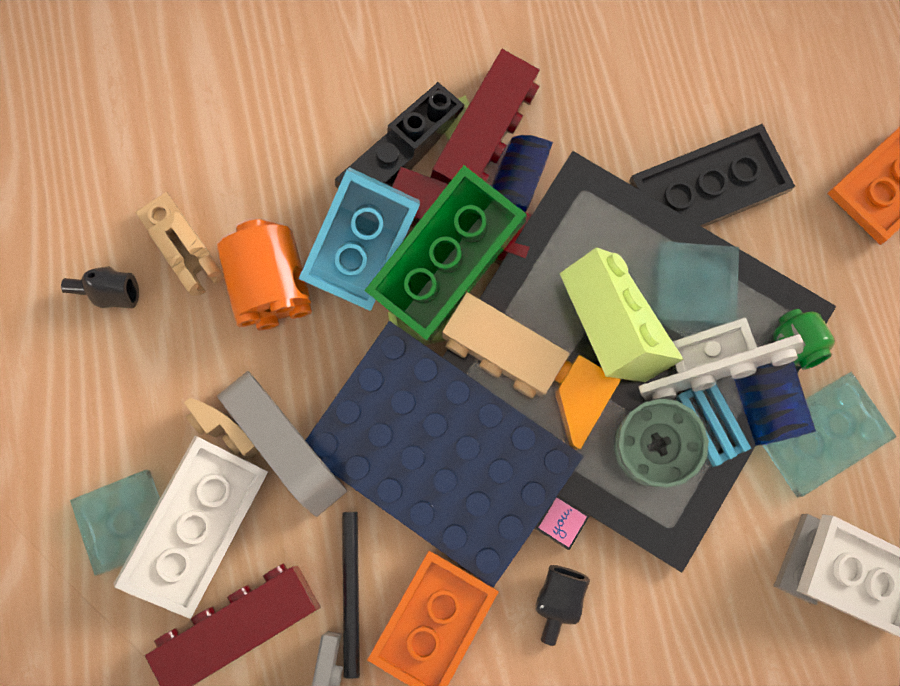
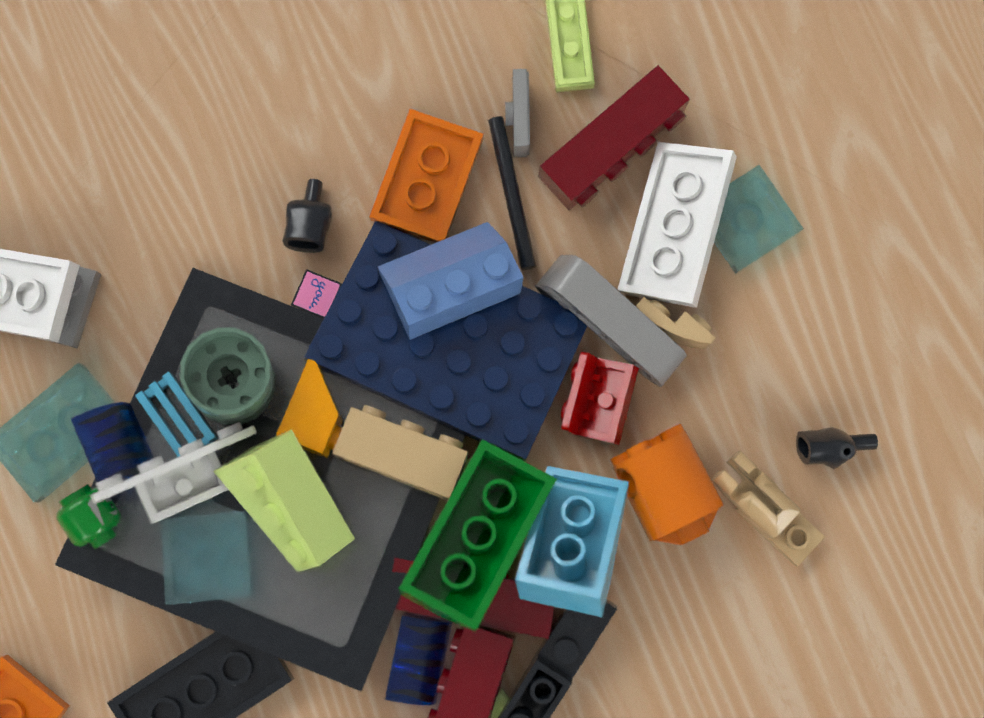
camera: 175 degrees right, 5 degrees up
(309, 369) = (598, 398): none -> red bracket
(427, 509) = (451, 279): none -> medium blue slope

